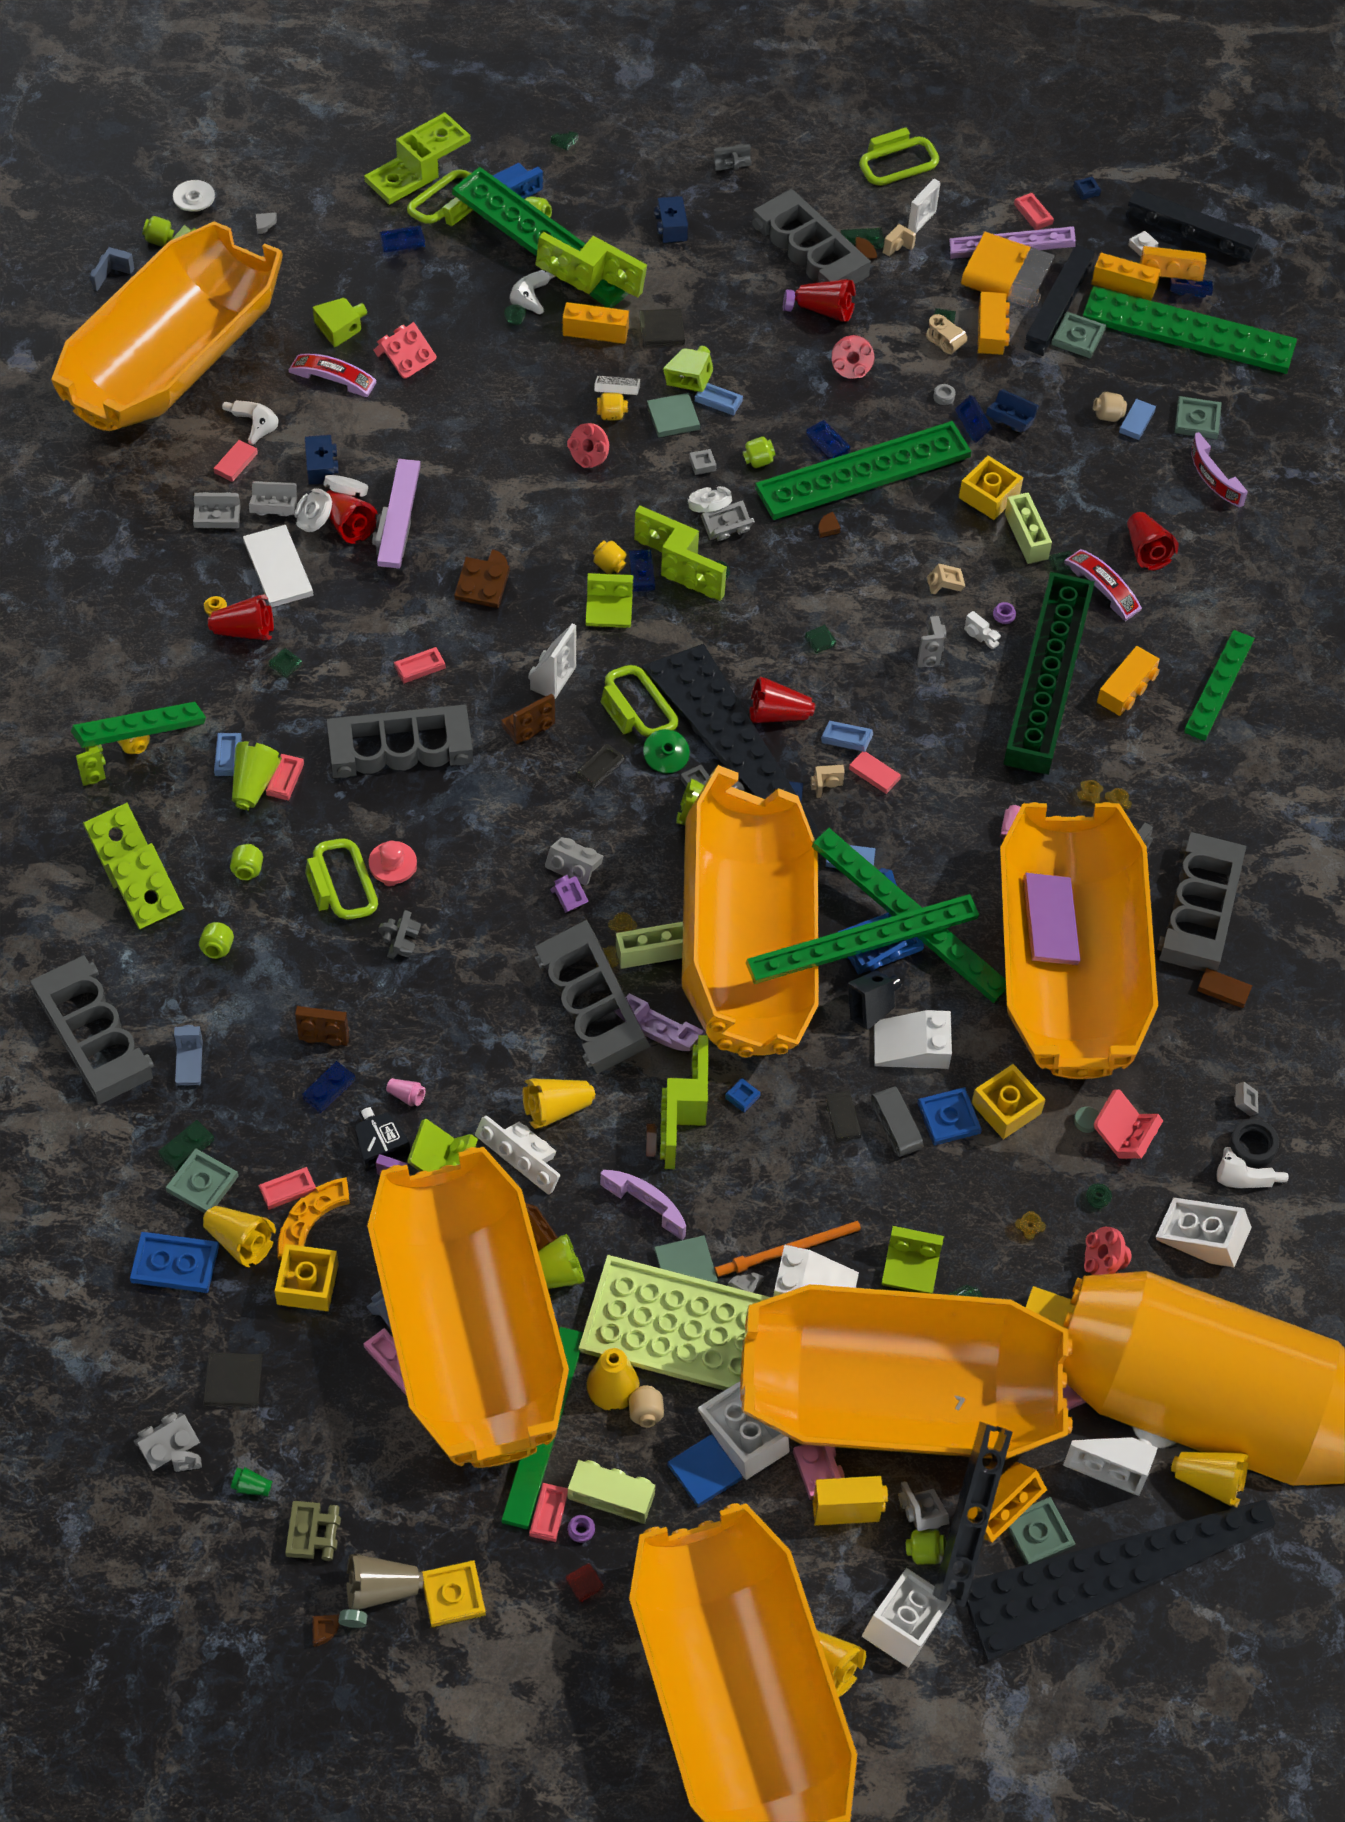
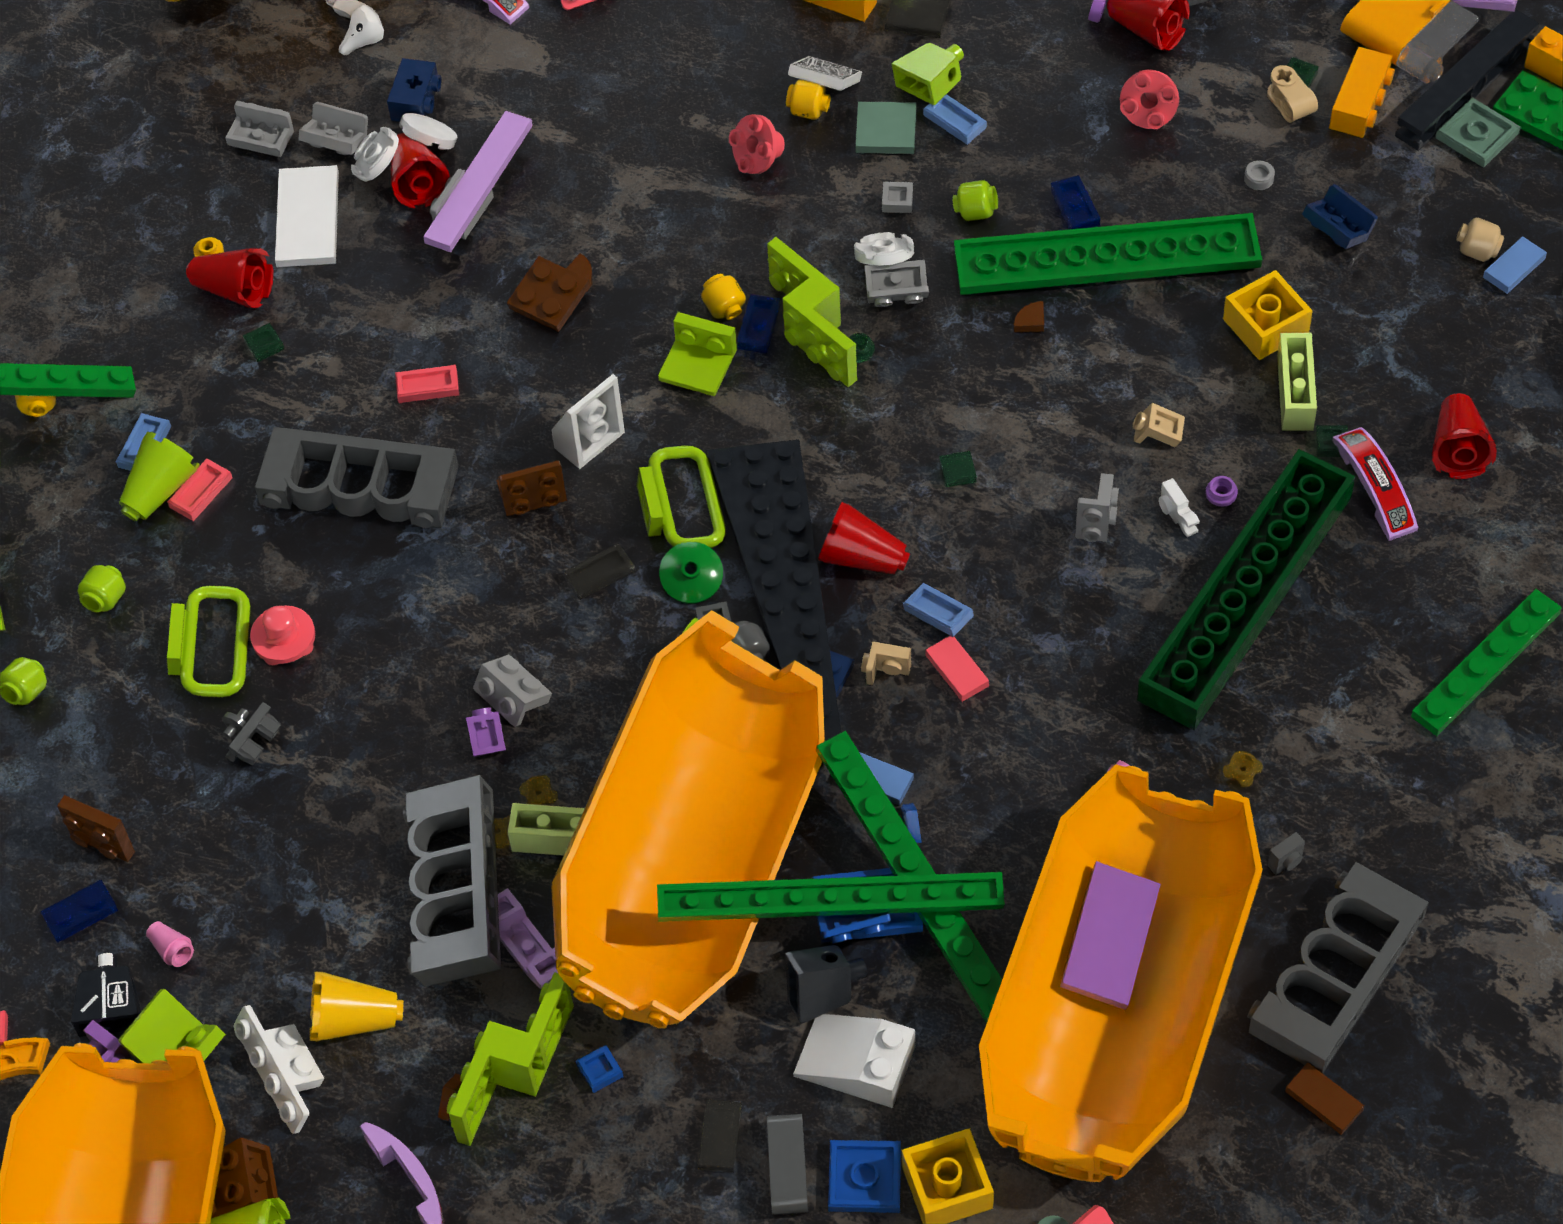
camera: 25 degrees right, 0 degrees up
(235, 460) = (313, 71): coral tile -> none
(973, 418) = (1283, 216): clear blue plate -> none
(1119, 794) = (1281, 782): clear yellow plate -> none
(1128, 681) = (1356, 625): light orange brick -> none

